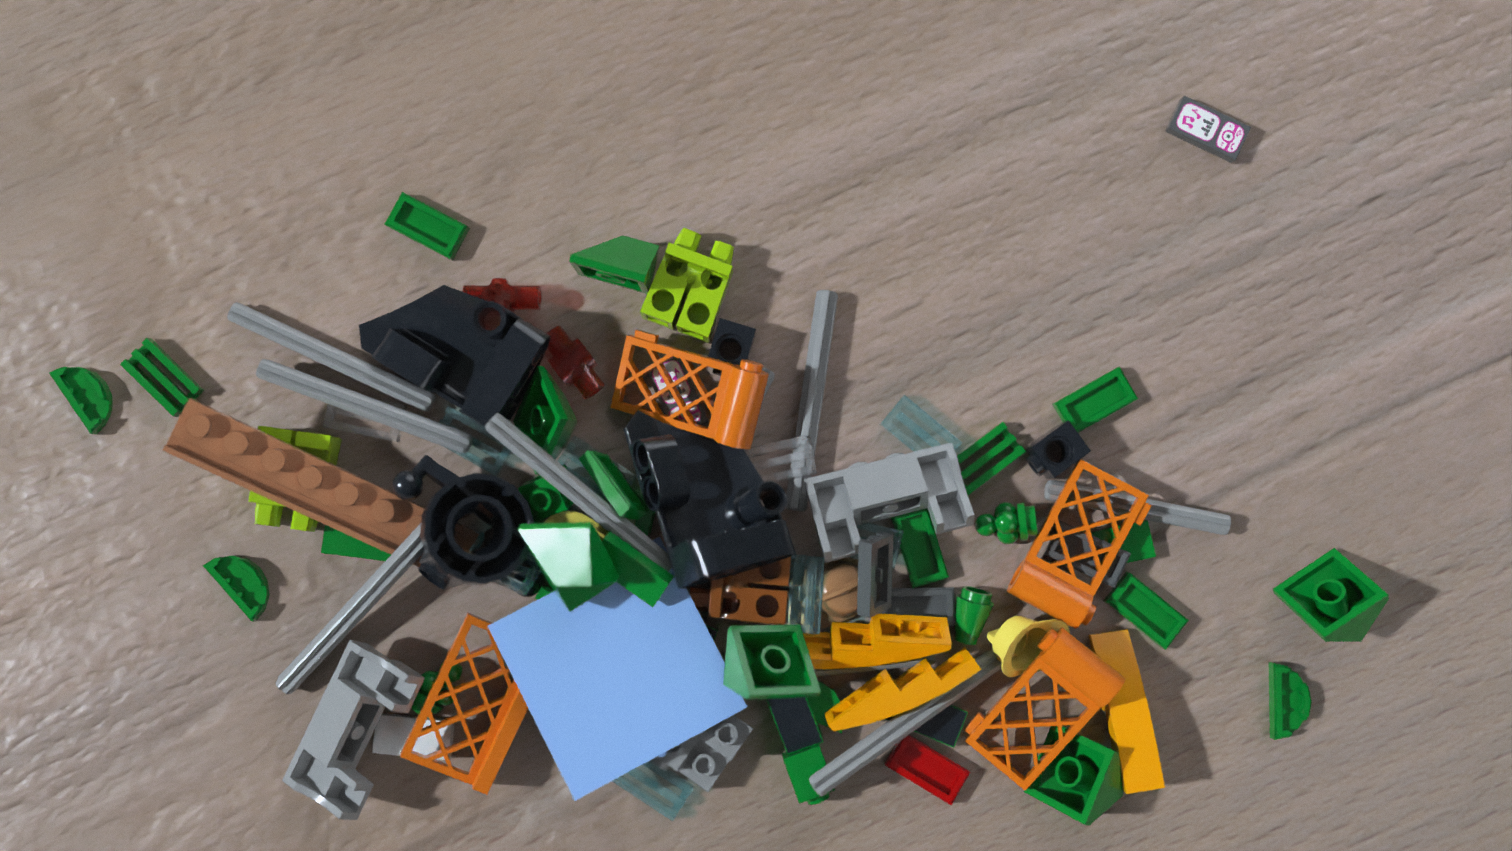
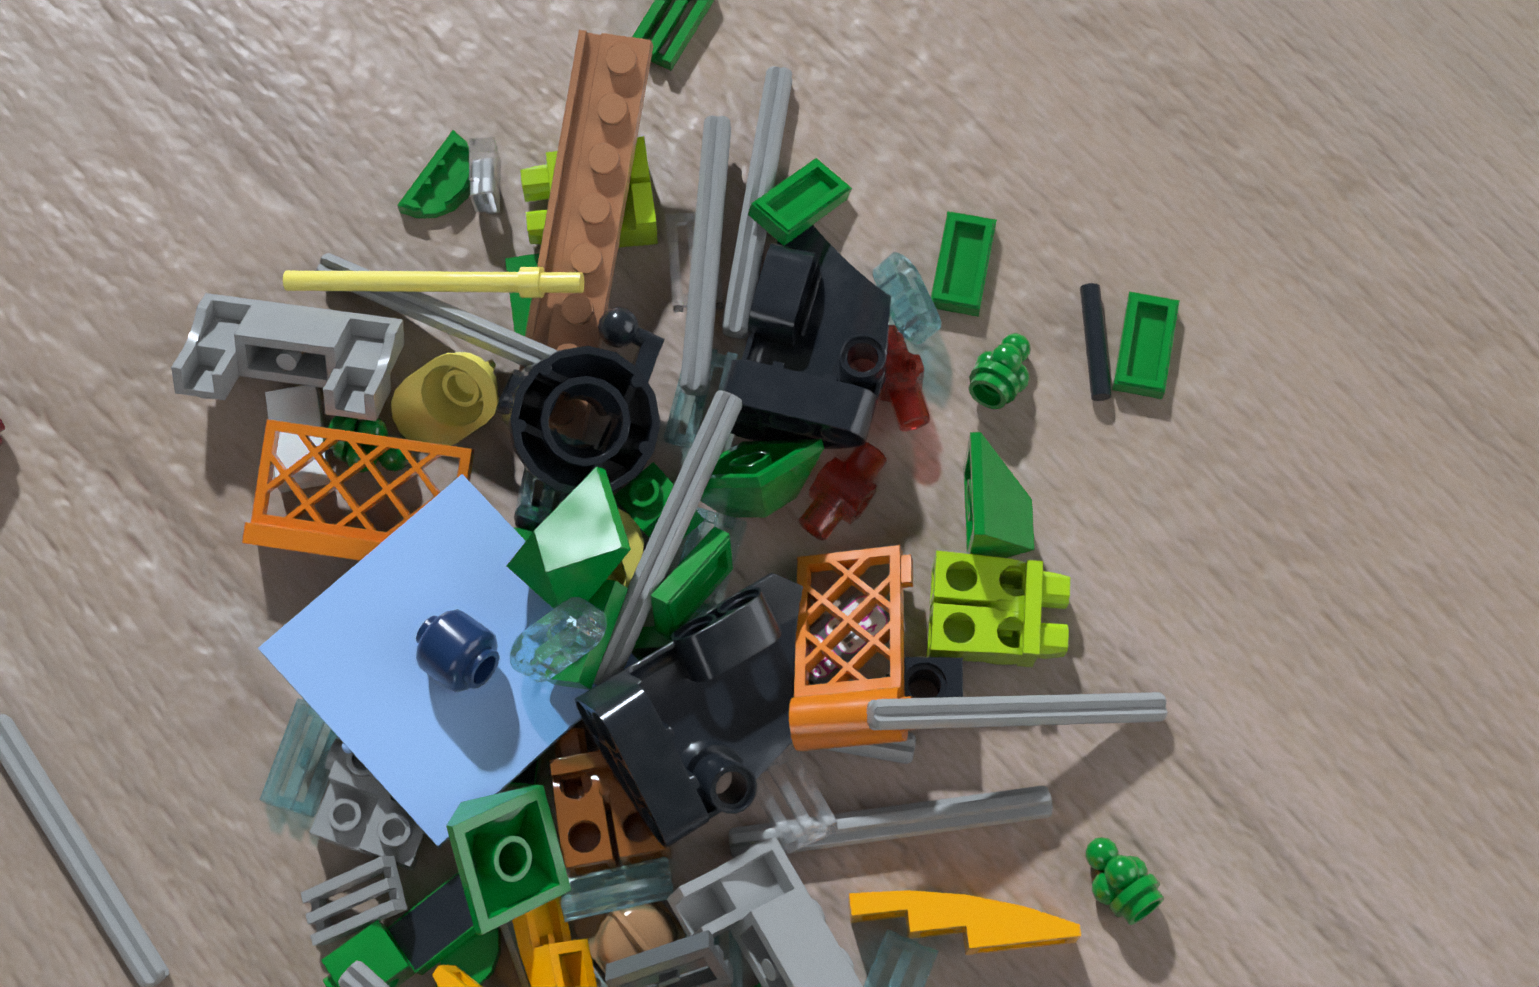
camera: 80 degrees right, 15 degrees down
(249, 550) = (485, 175): none -> clear piece
(344, 327) = (799, 201): none -> green tile
(351, 541) = (528, 282): none -> light yellow bar
(420, 622) = (446, 399): none -> light yellow piece
(455, 272) = (910, 300): none -> clear light blue beam
(515, 153) = (1095, 342): none -> black piece
(519, 226) = (999, 373): none -> green piece
(528, 120) = (1145, 345): none -> green tile
(619, 661) = (457, 650): none -> dark blue head
(637, 589) = (558, 639): none -> clear light blue beam
(763, 795) = (322, 911): none -> light grey tile
(769, 295) = (1015, 710): none -> light grey axle
(893, 262) = (1123, 883): none -> green piece
(896, 361) = (984, 922): none -> light orange slope

